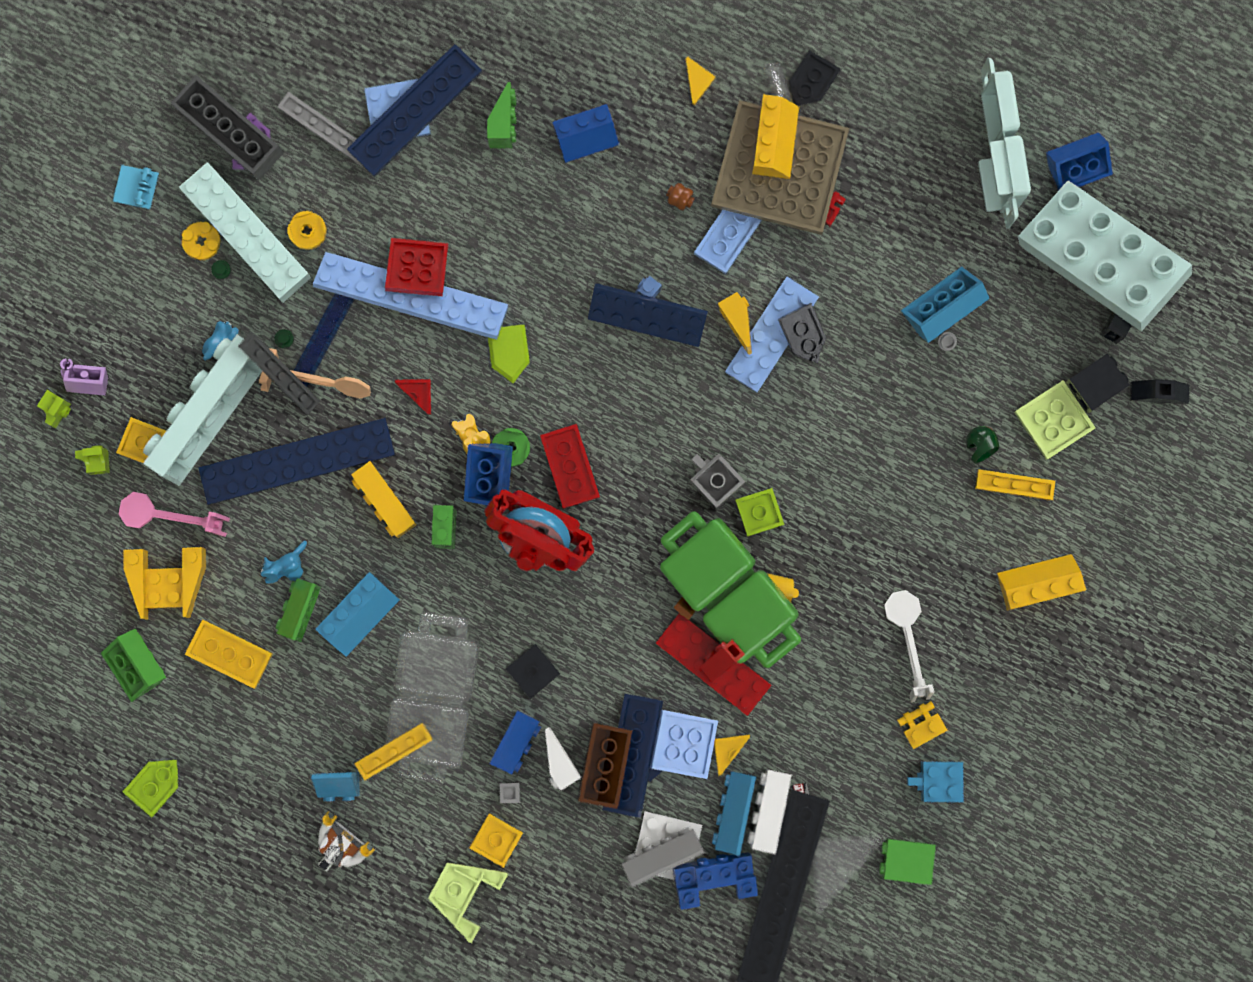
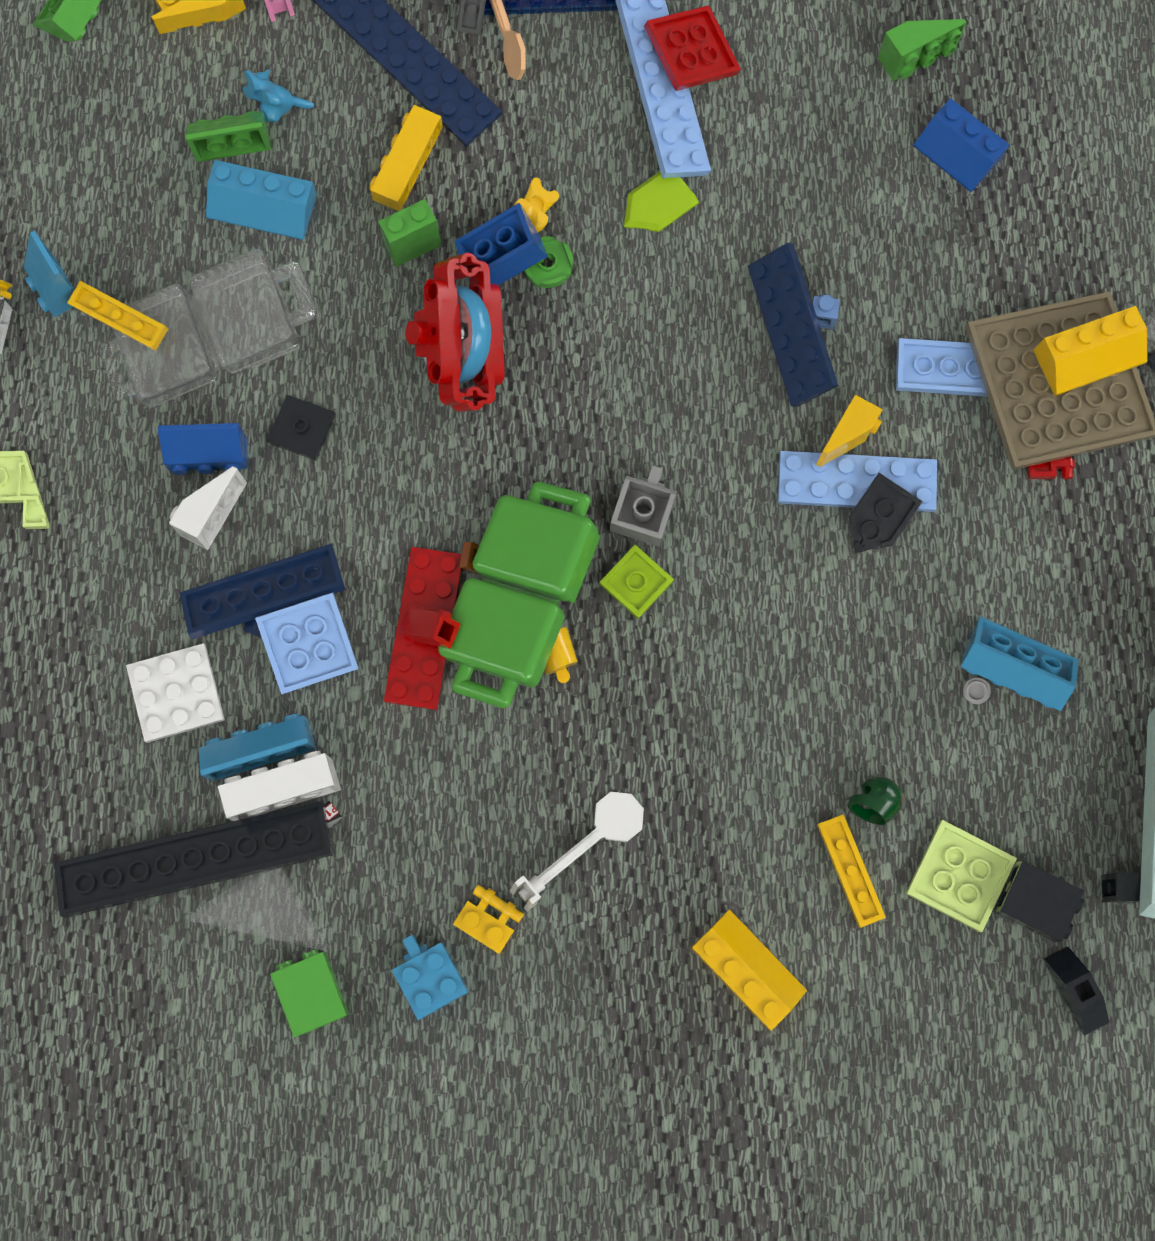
camera: 60 degrees right, 5 degrees down
(228, 654) = (139, 92): yellow plate -> none
(419, 391) = (553, 131): red tile -> none
(496, 840) = (80, 492): yellow plate -> none
(509, 792) = (143, 477): light grey plate -> none
(570, 466) = (564, 338): red plate -> none
(604, 765) = (230, 562): reddish brown slope -> none
(662, 857) = (154, 688): light grey slope -> none
(680, 196) = (954, 288): dark orange piece -> none
(698, 78) = (1104, 236): yellow tile -> none
(714, 873) = (168, 762): blue bracket -> none
(727, 749) = (329, 700): yellow tile -> none

